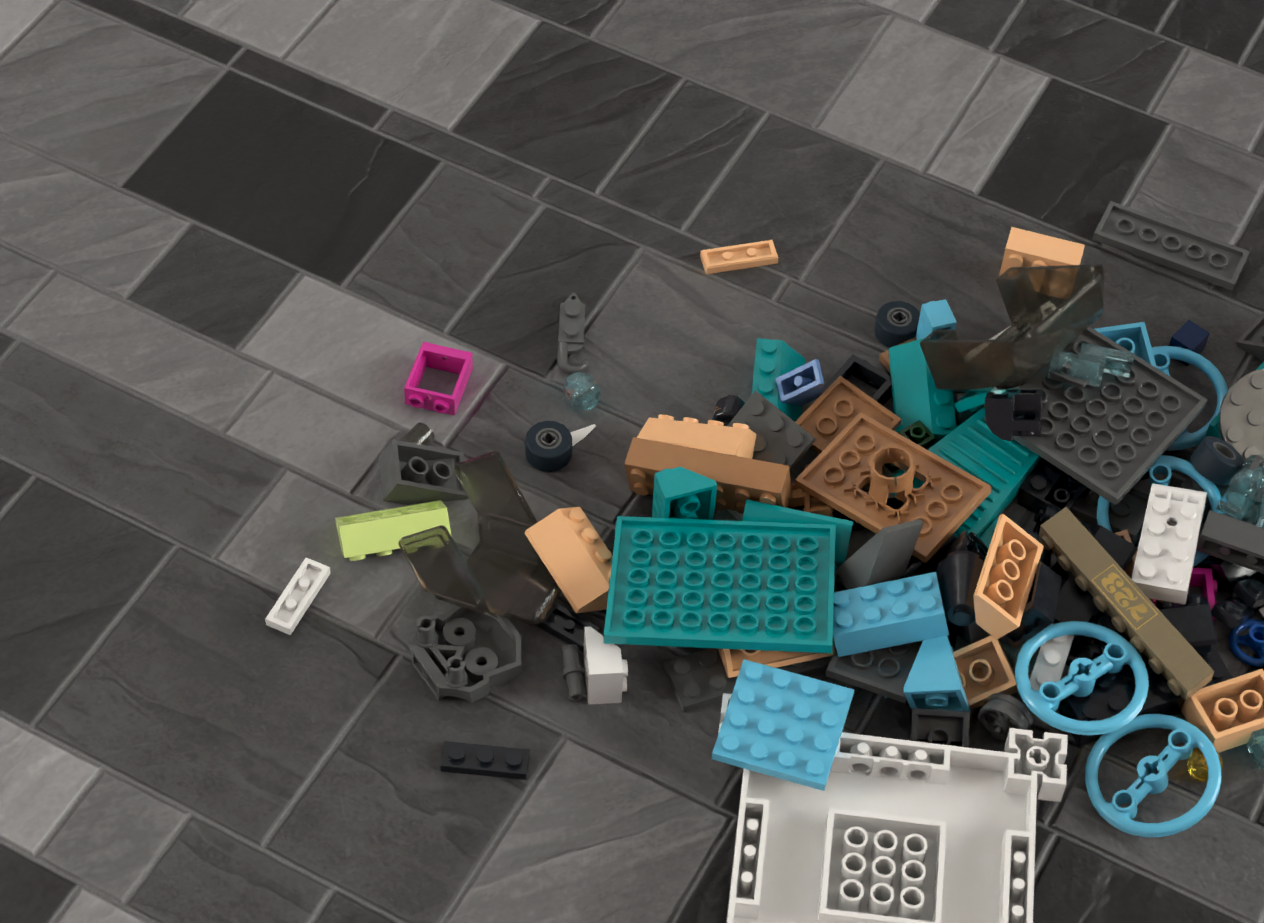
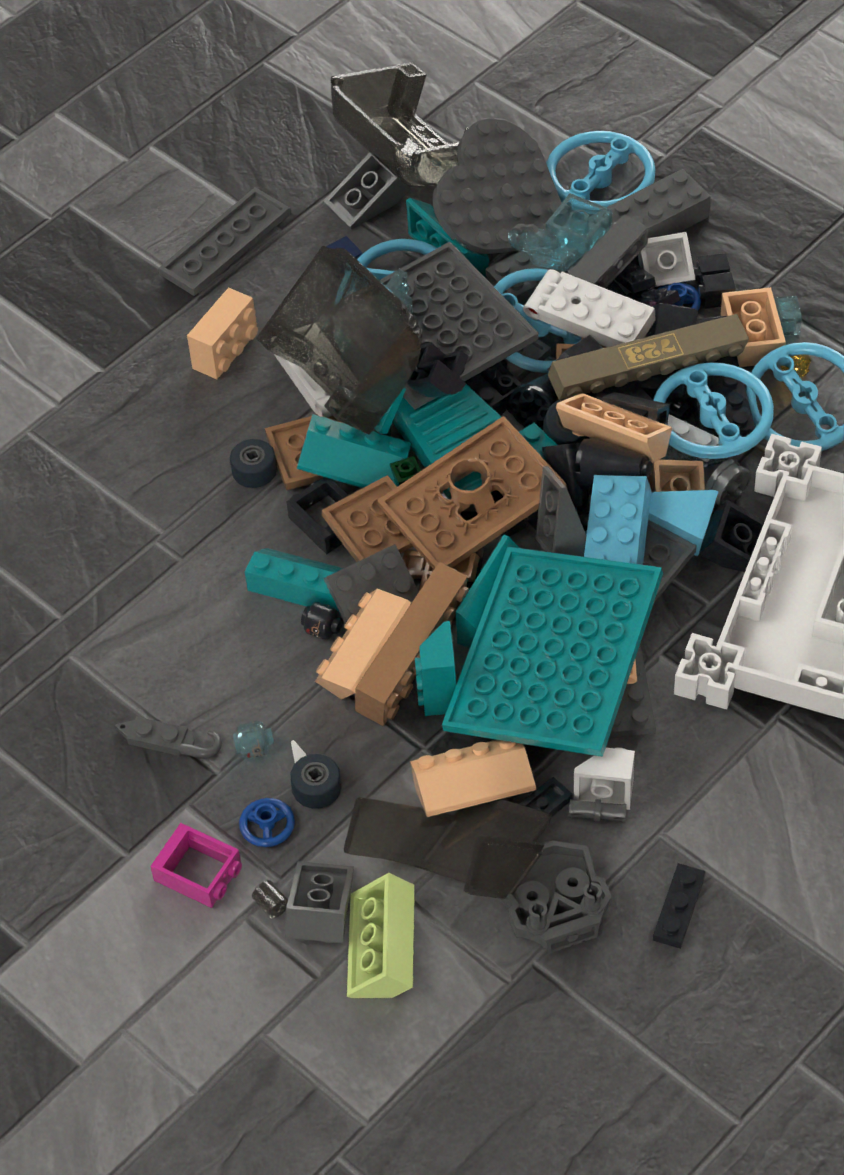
camera: 70 degrees left, 0 degrees up
(297, 596) = (444, 1042): white plate -> none
(500, 420) = (265, 809): none -> blue piece
(739, 256) = (116, 575): light nougat tile -> none
(783, 724) = (722, 634): medium azure plate -> none
(801, 384) = (320, 541): medium blue slope -> none
(935, 316) = (286, 424): medium azure brick -> none
(1216, 460) = (509, 257): black wheel -> none

